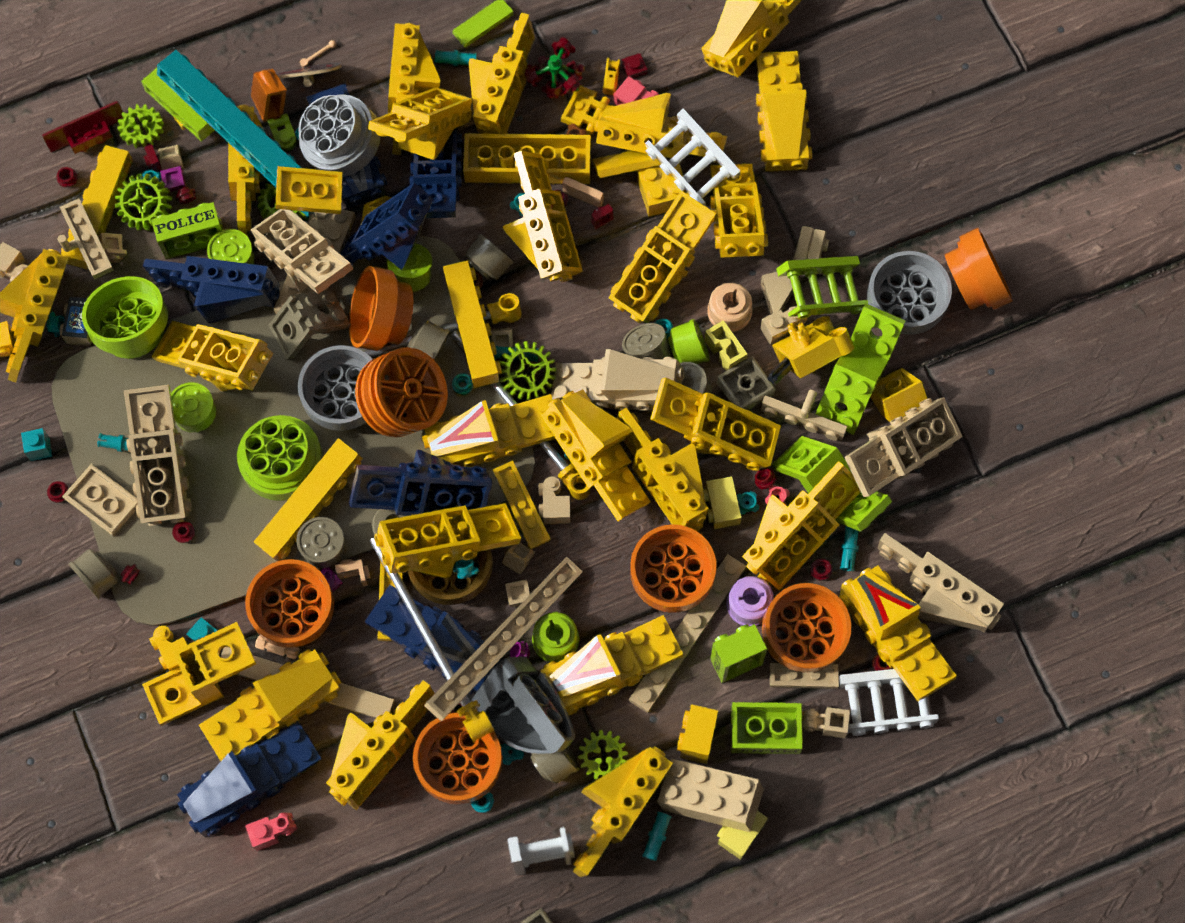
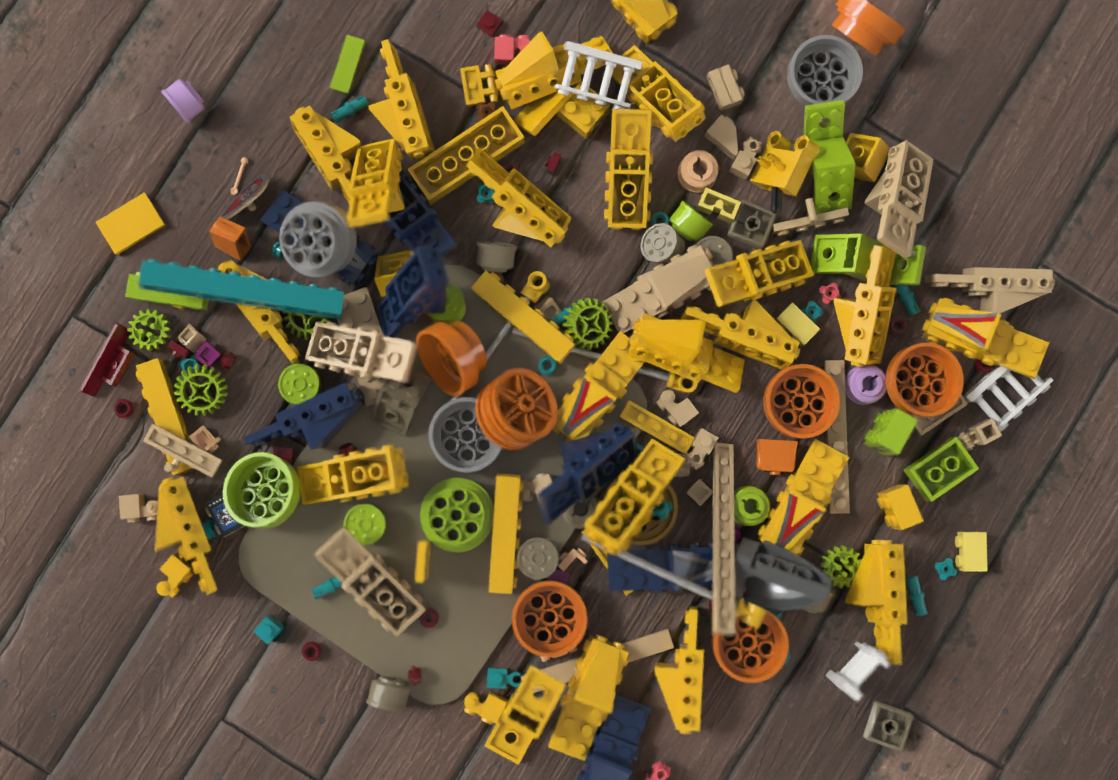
camera: 45 degrees left, 15 degrees up
(101, 499) = (349, 635): tan tile -> none
(173, 305) = (284, 453): none -> dark red plate
(186, 229) = (253, 389): lime brick -> none
(195, 32) = (130, 223): none -> yellow tile
(217, 469) = (423, 560): none -> yellow tile
(285, 137) = (267, 263): lime plate -> none
(308, 190) = (331, 301): yellow plate -> none
(429, 339) = (503, 354): dark tan wheel -> none
(552, 549) = (702, 445): none -> tan brick
(553, 66) = (427, 68): dark red plant -> none
(582, 192) = (526, 153): light nougat tile -> none
(611, 77) = (479, 45): yellow bar -> none
(615, 608) = (776, 455): none -> orange torso
(704, 837) = (951, 571): none -> teal plate
(711, 795) = (940, 545): tan brick -> none
(765, 478) = (809, 284): dark red plate -> none
(827, 267) = (743, 105): lime fence -> none

